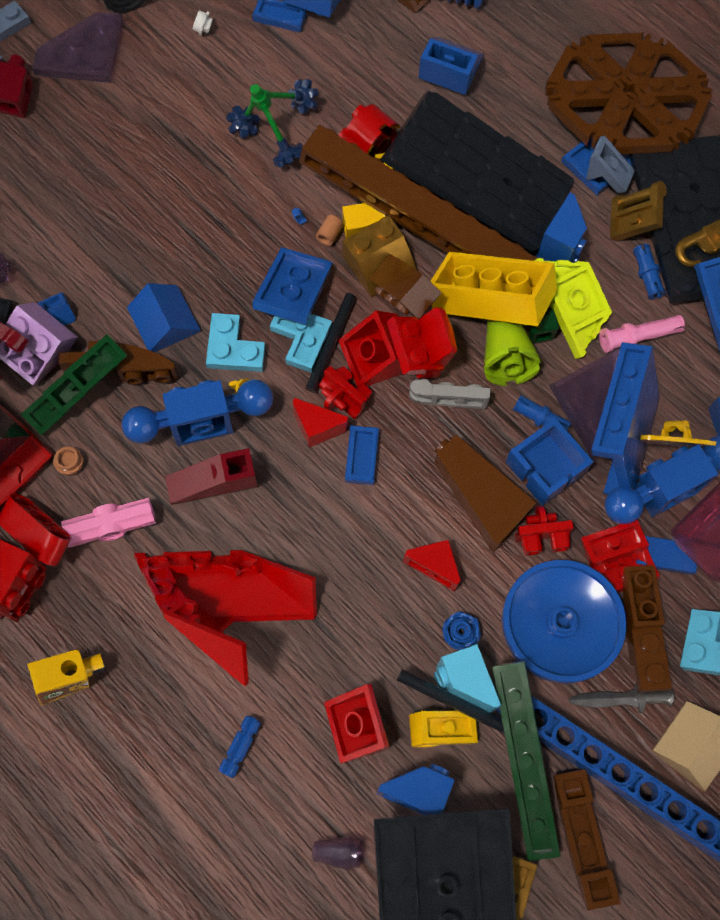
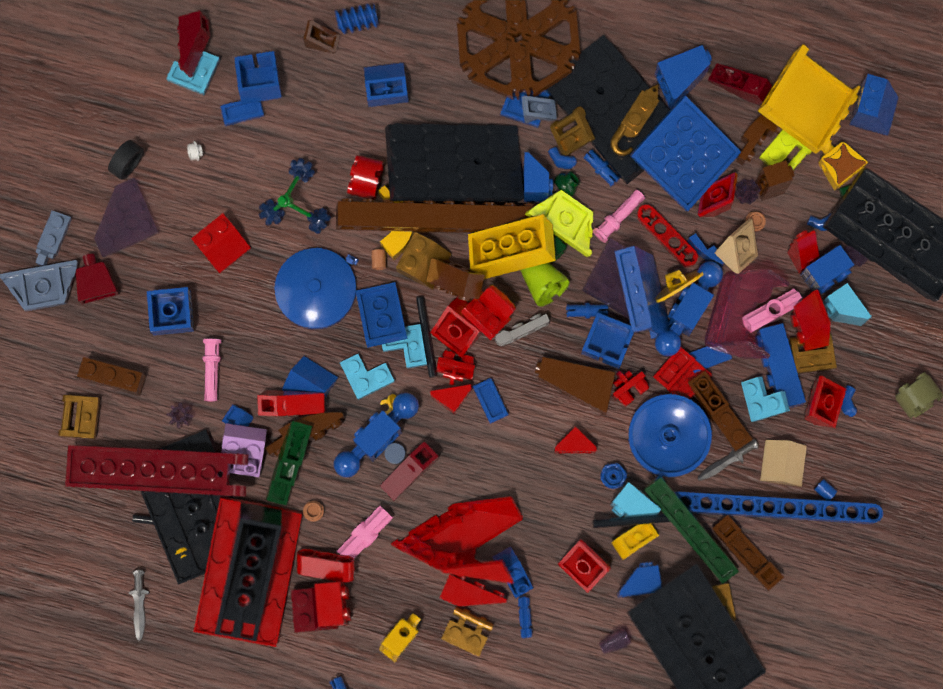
camera: 25 degrees left, 10 degrees up
(60, 155) = (170, 311): none -> blue brick
(71, 231) = (211, 368): none -> bright pink pin
(122, 320) = (290, 403): none -> red slope
(146, 725) = (466, 638): none -> pearl gold plate
(165, 120) = (221, 243): none -> red slope
(180, 668) = (464, 594): none -> red slope
(207, 447) = (395, 453): none -> sand blue tile
(238, 223) = (315, 288): none -> blue dish
(261, 690) = (521, 582): none -> blue slope
(601, 262) = (567, 183): none -> dark green animal
(605, 240) = (560, 161): none -> blue arm
(693, 385) = (664, 238): none -> red beam

